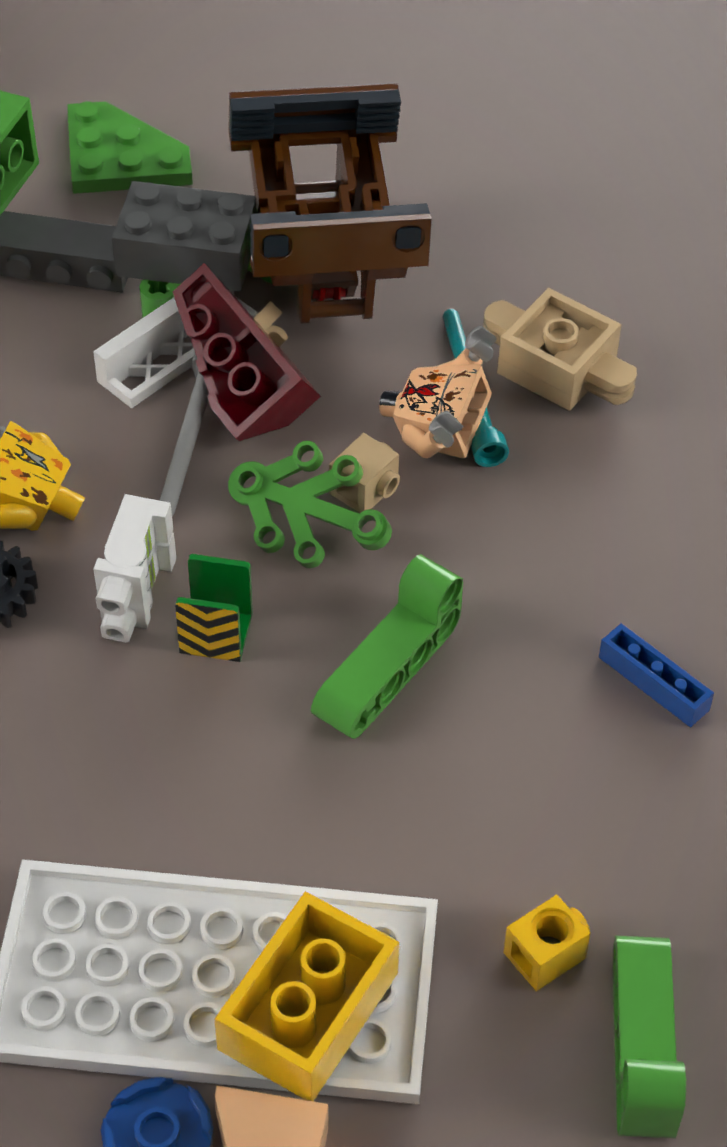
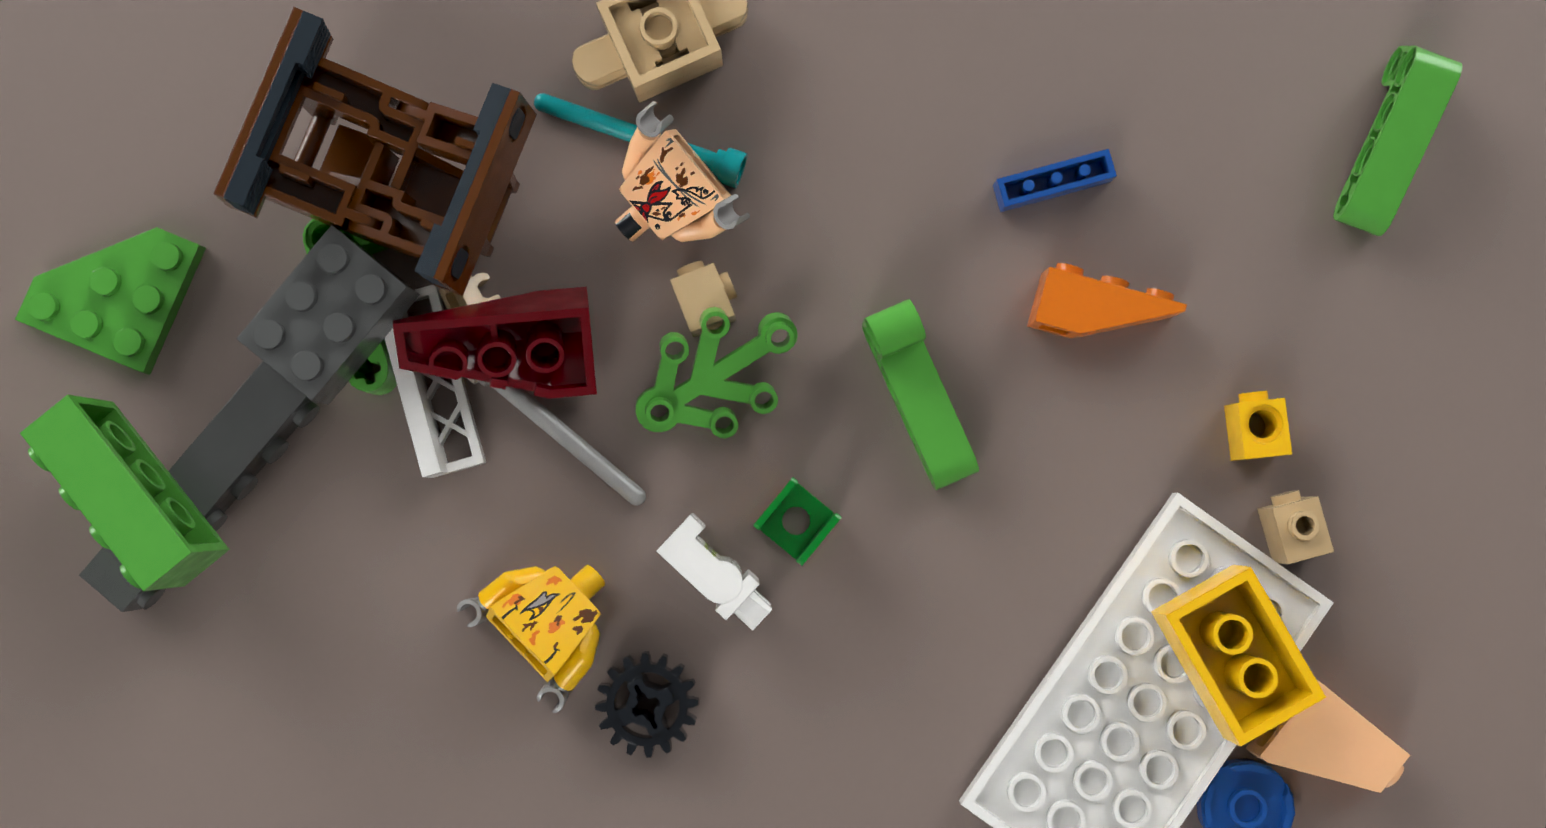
camera: 60 degrees left, 35 degrees up
(471, 1024) = (1295, 528): none -> tan brick
(560, 750) = (1084, 306): none -> orange slope
(646, 1065) = (1422, 434): bright green beam -> none

